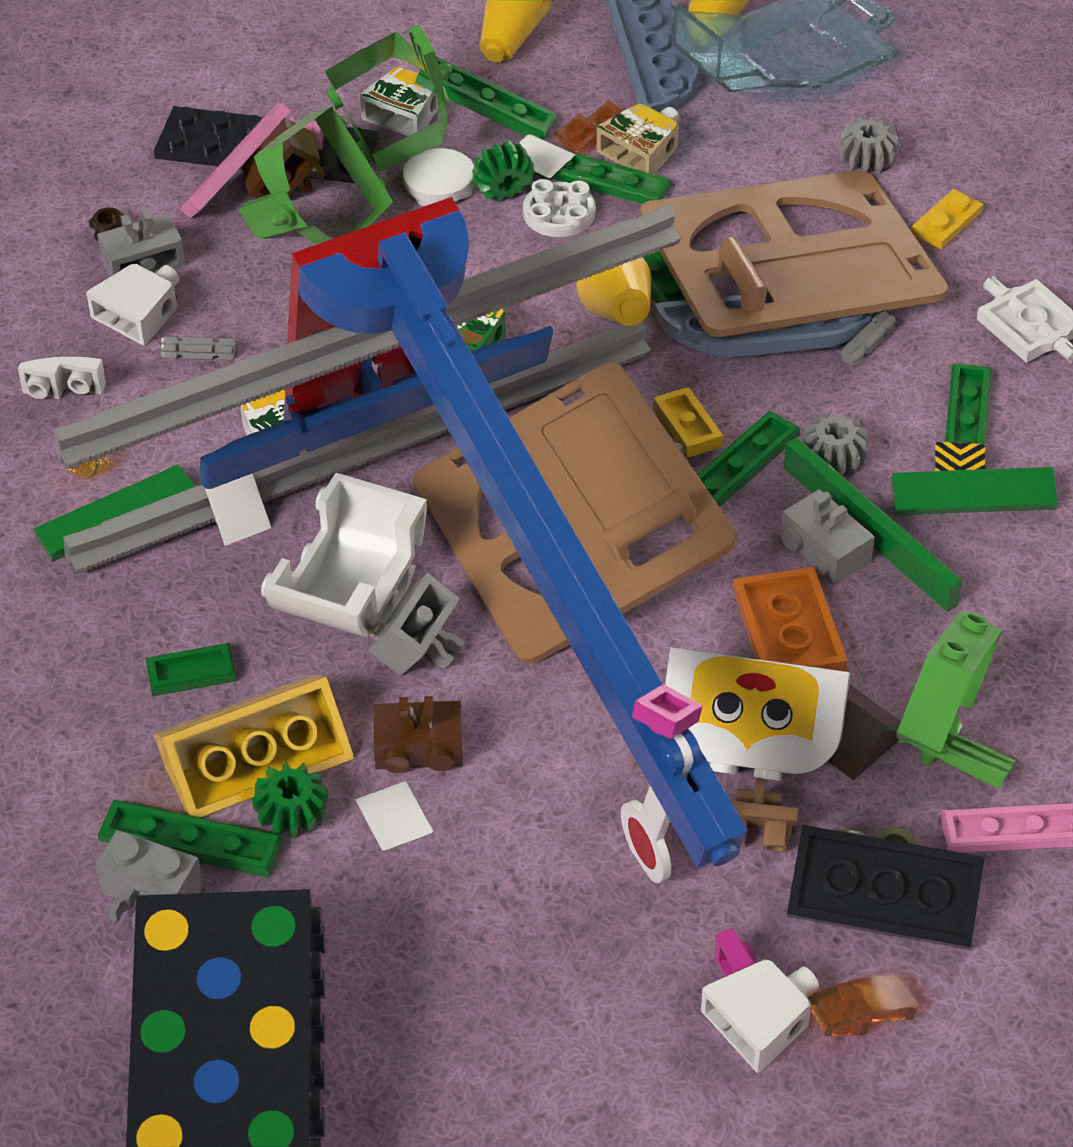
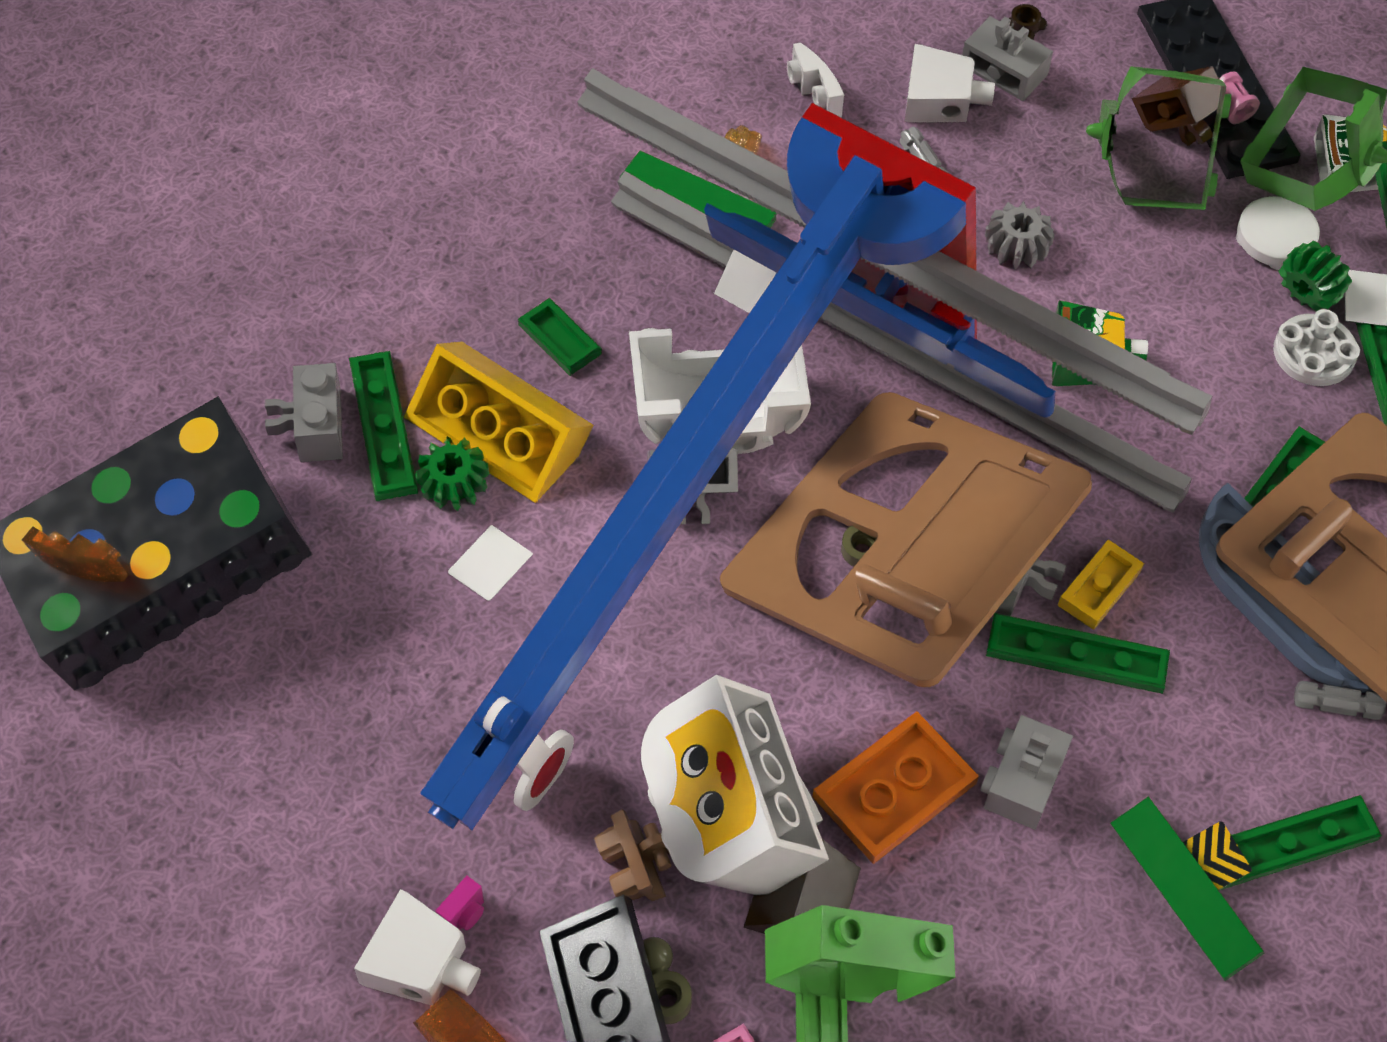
camera: 60 degrees right, 10 degrees up
(234, 160) = (1121, 66): bright pink tile -> none
(247, 1069) = (78, 558): none -> clear orange slope
(418, 735) = (567, 527): reddish brown brick -> none
(618, 293) = (1225, 445): yellow cone -> none
(667, 711) = (517, 679): dark pink plate -> none
(837, 441) = (1146, 737): light grey gear -> none
(889, 539) = (1072, 809): green tile -> none

